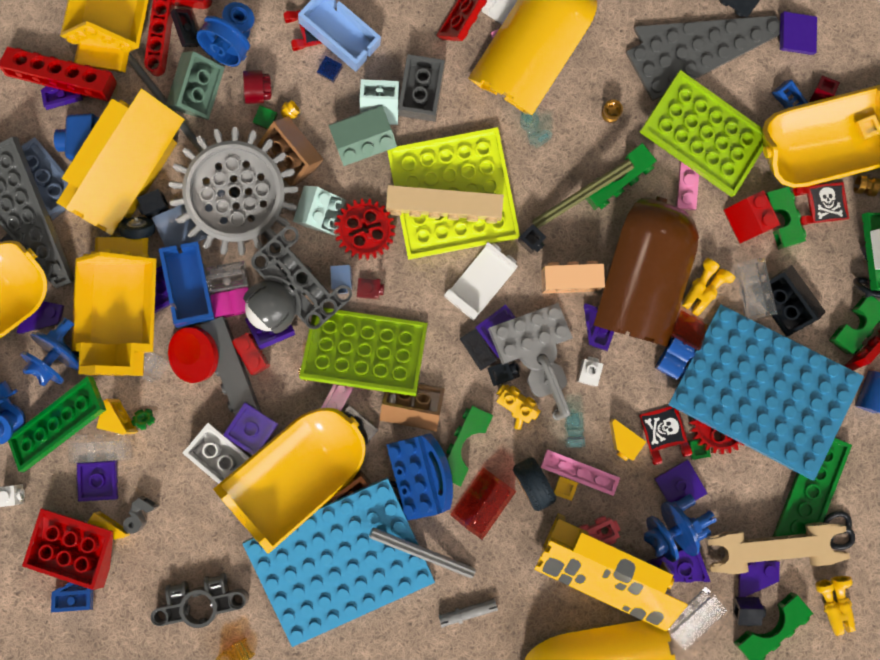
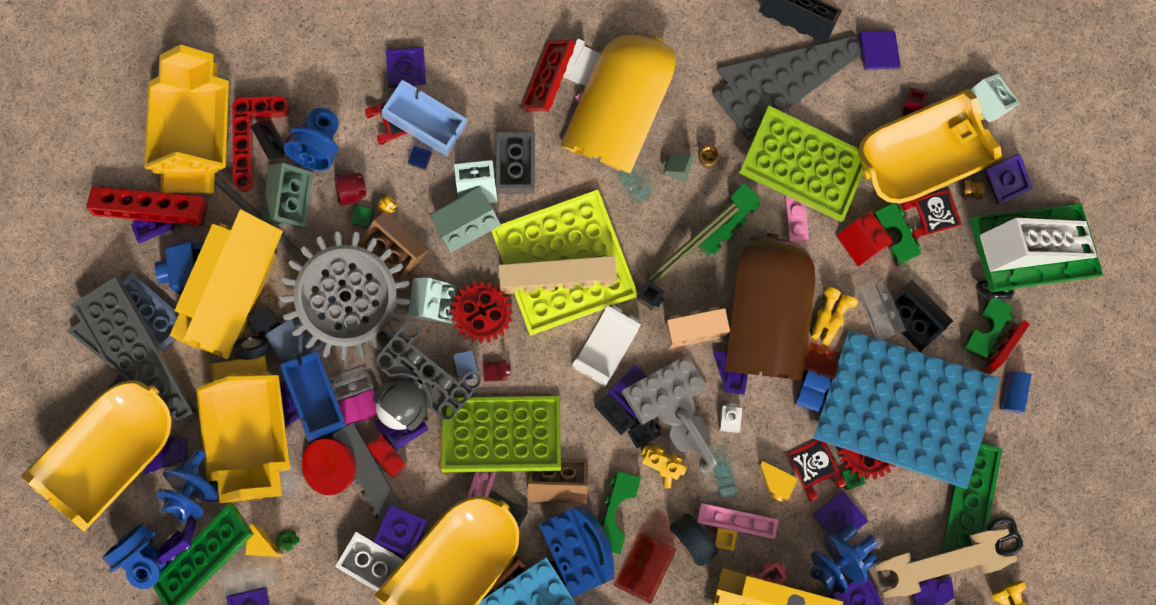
camera: 15 degrees left, 5 degrees down
(35, 405) = (176, 543): none -> dark purple wing
(580, 116) = (678, 166): none -> sand green slope
(783, 97) = (875, 116): blue slope -> none

